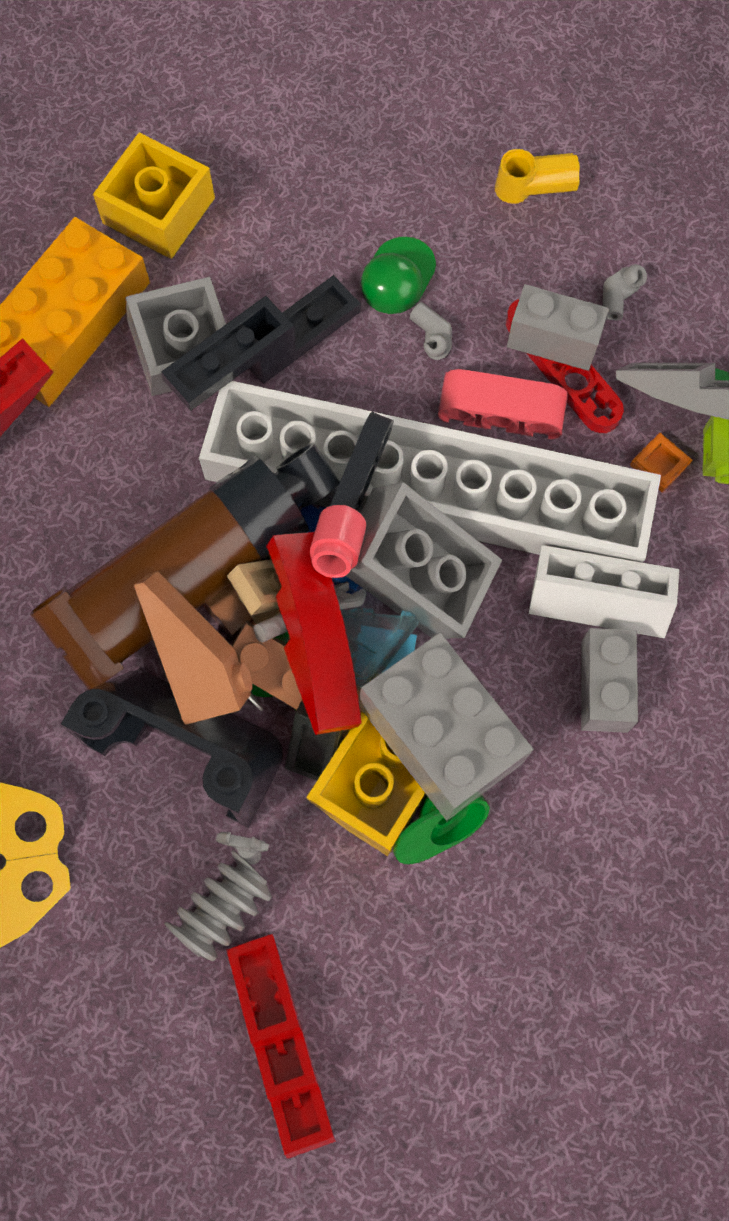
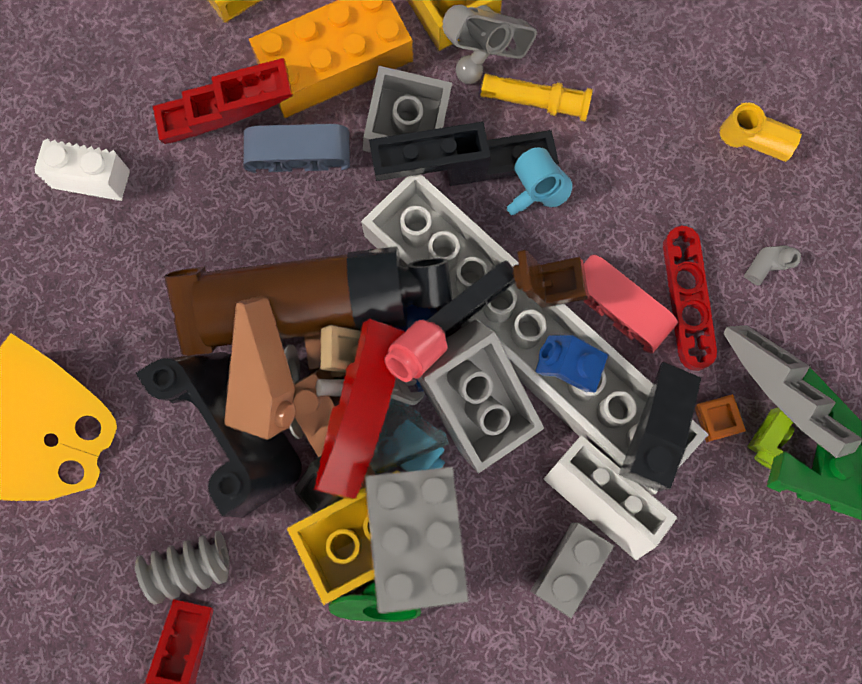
camera: 30 degrees right, 5 degrees up
(80, 427) = (296, 146): none -> sand blue beam
(215, 214) = (485, 34): none -> light grey piece
(247, 848) = (222, 541): light grey piece -> none
(317, 244) = (553, 98): none -> yellow pin
(356, 326) = (542, 180): none -> medium azure piece
(398, 275) = (603, 155): green cap -> none
(429, 410) = (551, 282): none -> reddish brown bracket
(437, 331) = (606, 217): light grey arm -> none
(491, 475) = (572, 361): none -> blue bracket
(557, 327) = (699, 267): light grey brick -> none
(616, 493) = (662, 429): none -> black slope

